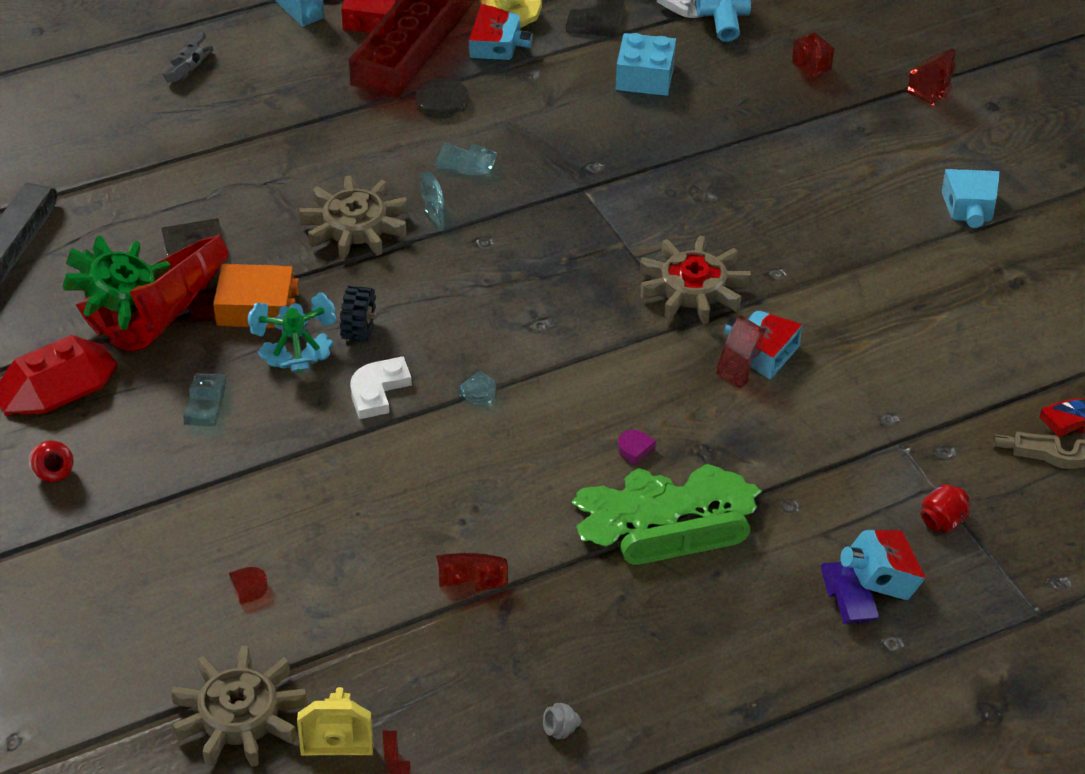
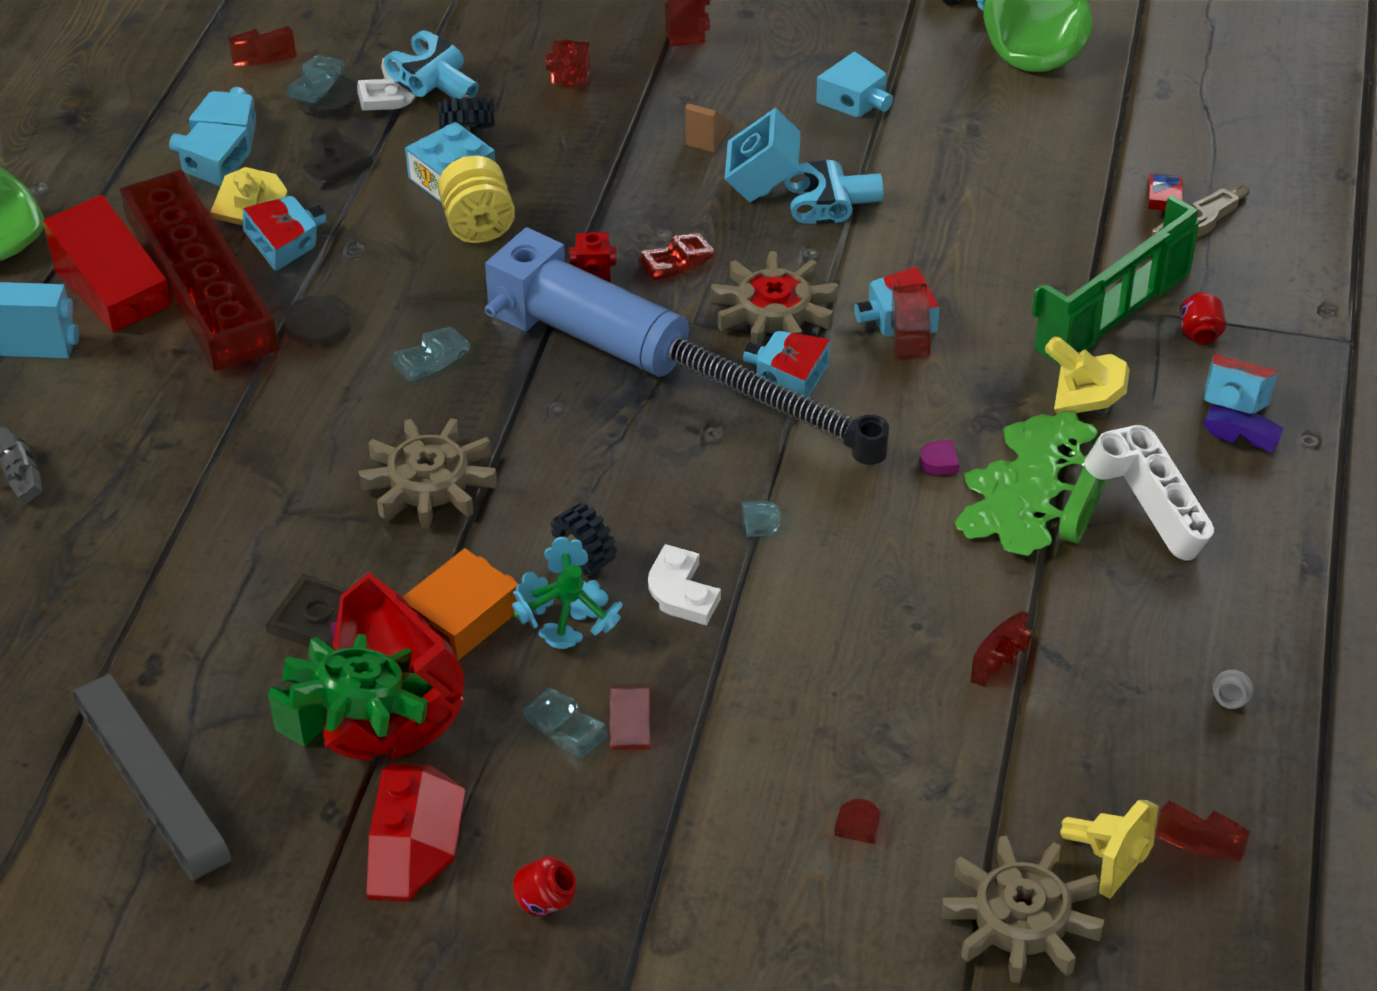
camera: 50 degrees left, 0 degrees up
(238, 422) = (629, 716): none -> clear red slope
(434, 200) = (479, 404): clear light blue slope -> none
(576, 235) = (535, 284): none -> medium blue piece
(615, 90) = (476, 199): none -> light yellow wheel
(630, 174) = (594, 254): none -> red brick
(639, 321) = (791, 360): none -> torso
(694, 215) = (682, 255): none -> clear red slope
(696, 40) = (468, 112): none -> black wheel
(709, 573) = (1157, 485): none -> white beam
(796, 477) = (1087, 380): none -> light yellow piece
(823, 189) = (763, 155): none -> medium azure brick
(833, 152) = (705, 127): none -> medium nougat slope
(842, 244) = (831, 192): none -> medium azure connector
(845, 440) = (1092, 312): none -> green piece

